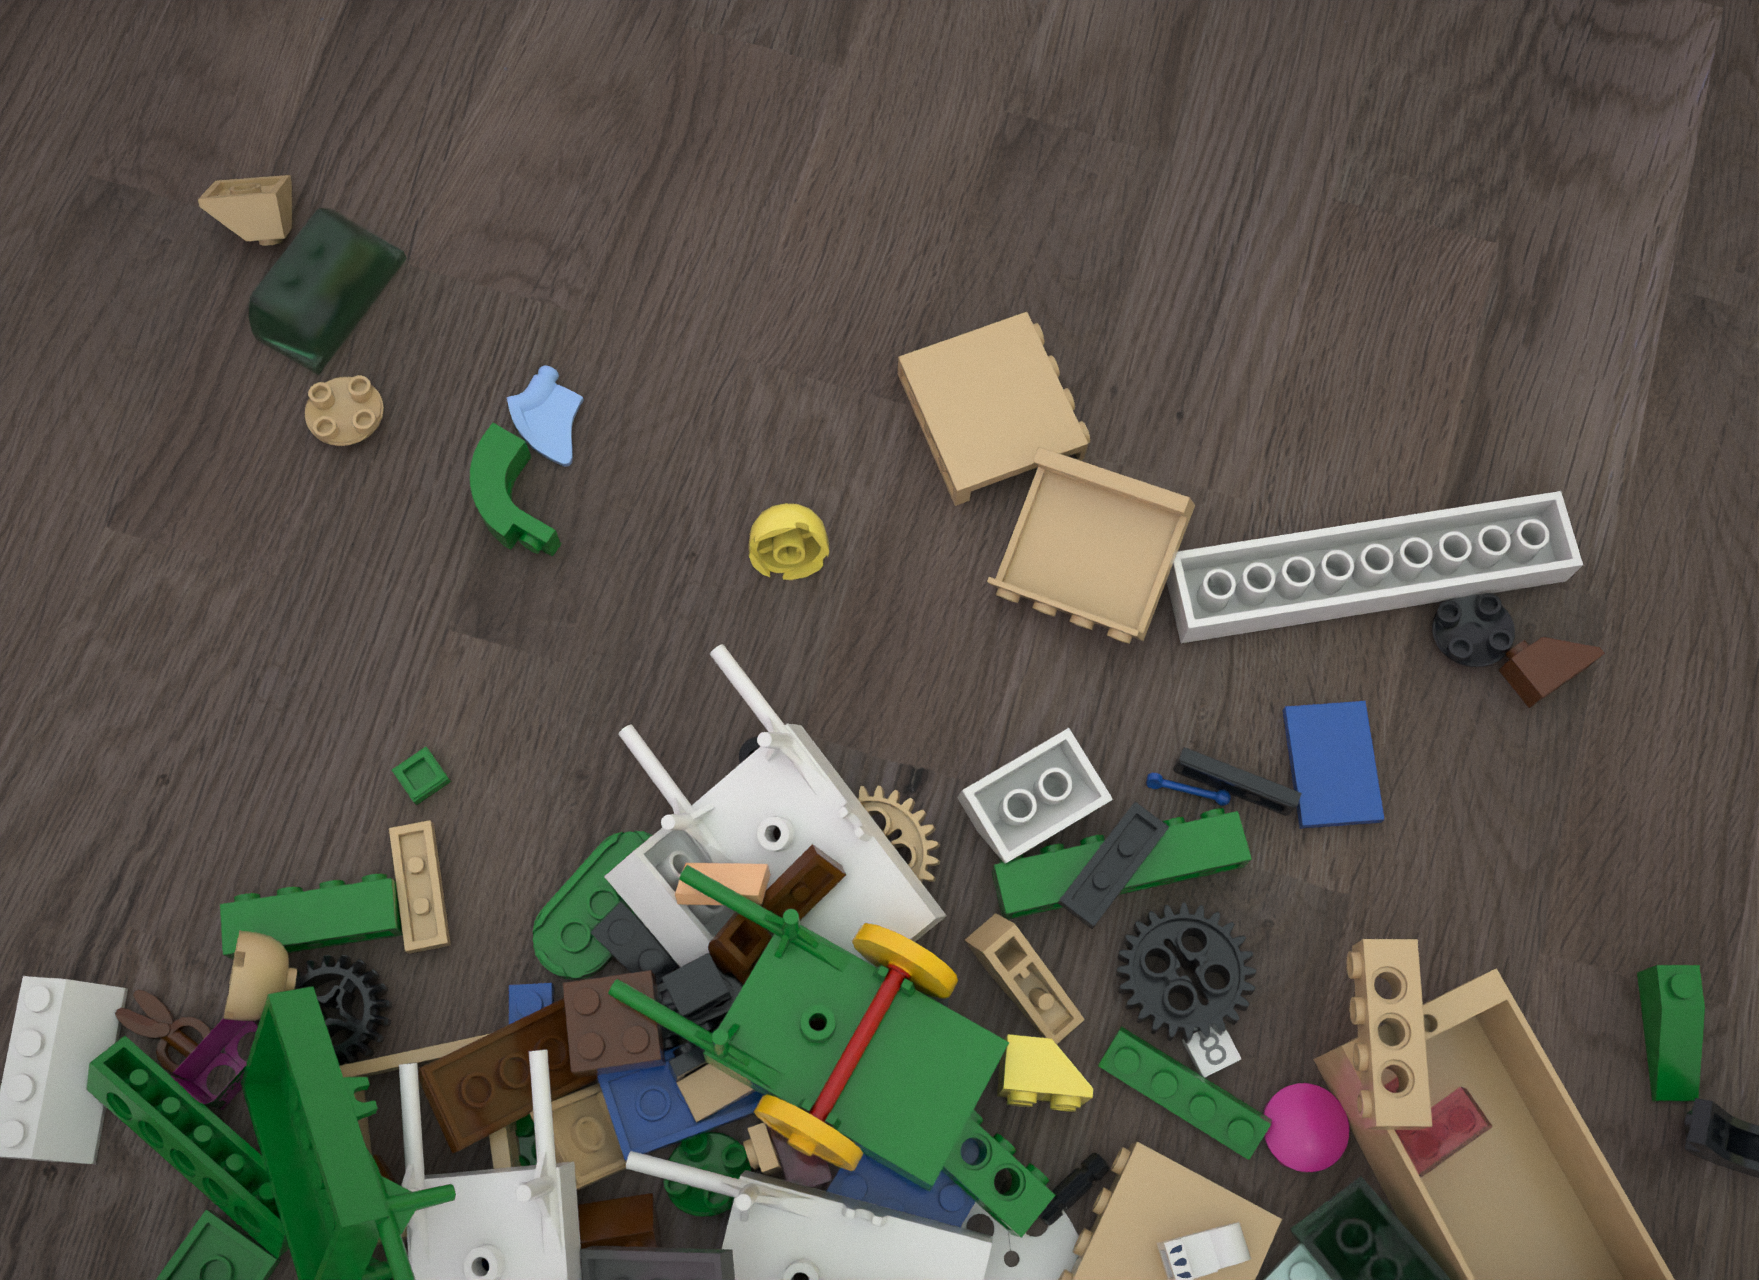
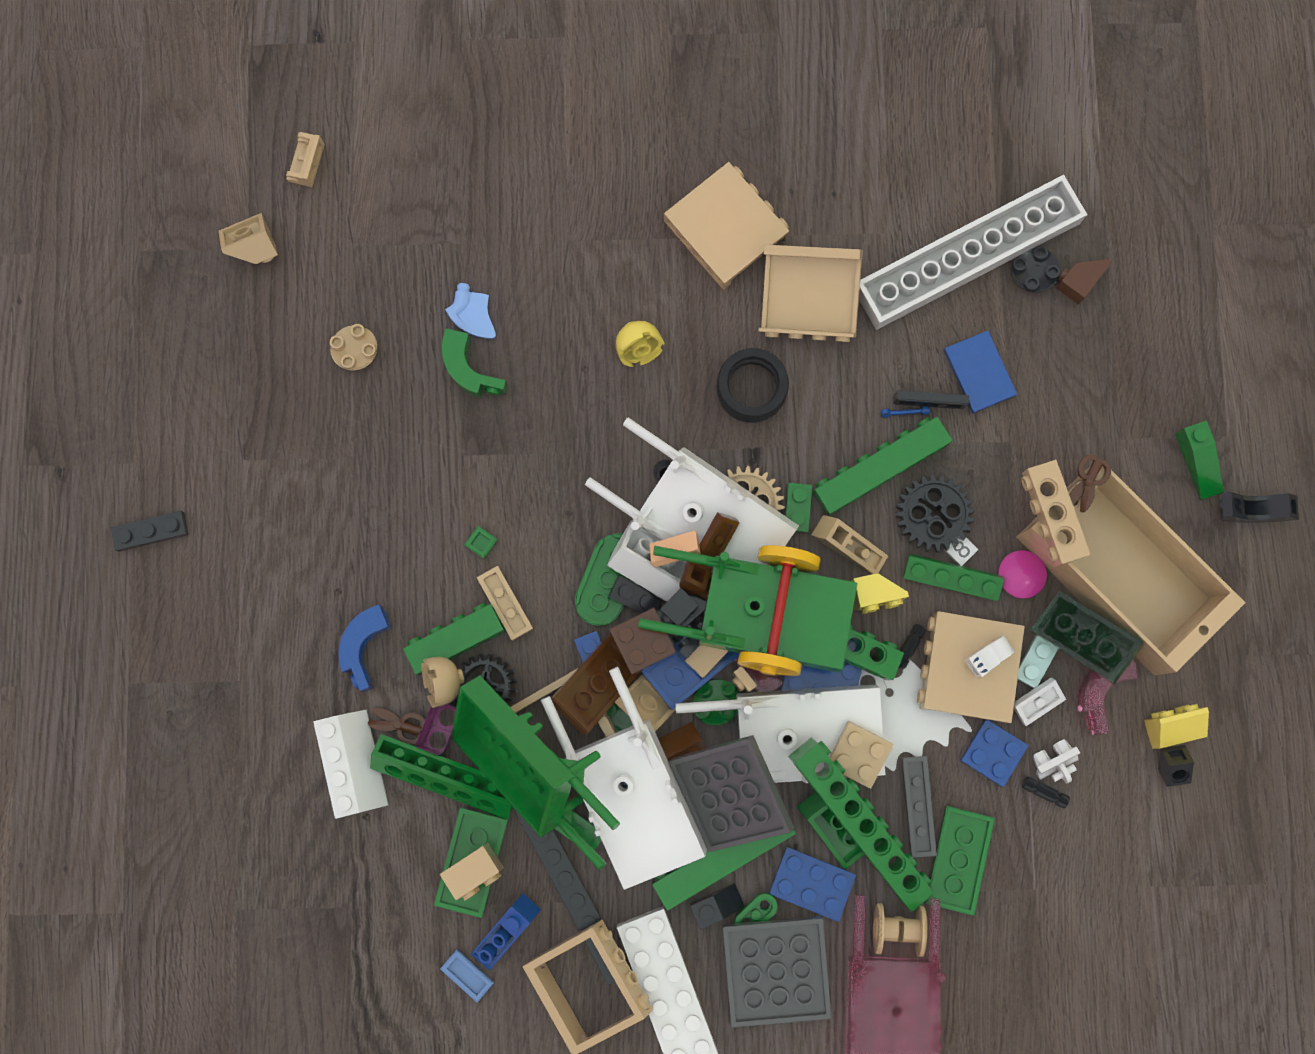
camera: 15 degrees left, 10 degrees up
(150, 869) = (354, 640): none -> blue arch
(321, 288) = (312, 278): clear green windscreen -> none
(387, 121) = (306, 159): none -> tan hinge
(954, 618) = (756, 357): none -> black tyre
(961, 886) = (799, 505): none -> green plate
(1034, 796) = (824, 444): white slope -> none
(1113, 865) = (880, 468): black plate -> none
(1455, 1124) = (1101, 548): clear pink plate -> none
(1459, 1005) = (1087, 487): none -> reddish brown piece

